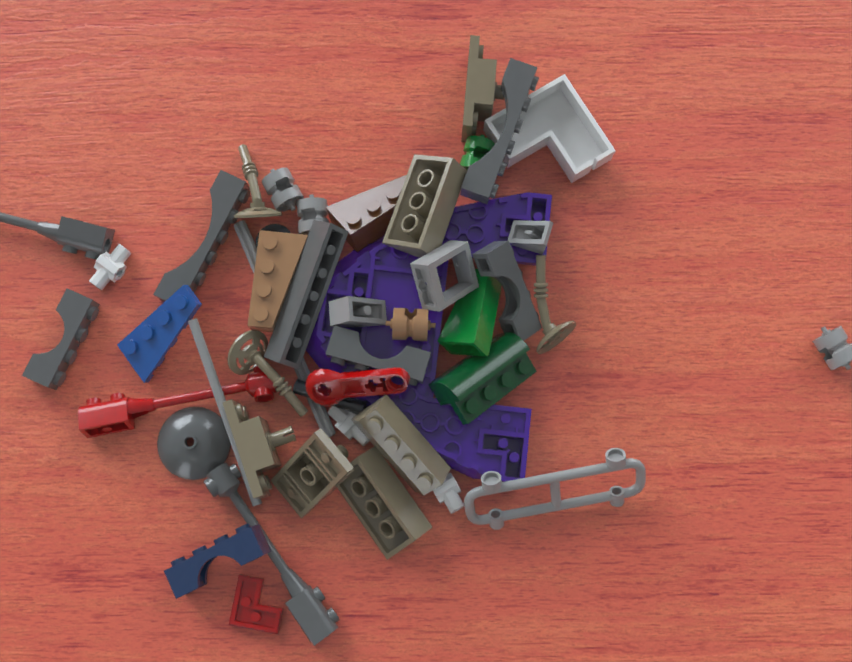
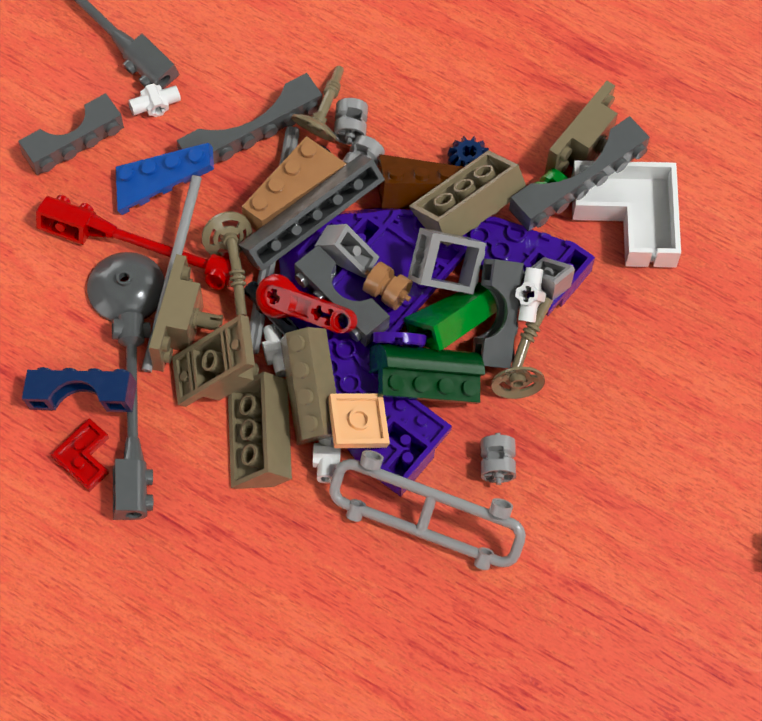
camera: 30 degrees right, 15 degrees down
(388, 159) = (465, 151): none -> dark blue gear
(442, 369) = (399, 338): none -> dark purple tile
(460, 455) = (358, 421): none -> light nougat plate
(524, 252) = (531, 284): none -> white axle
(578, 408) = (498, 459): none -> light grey wheel

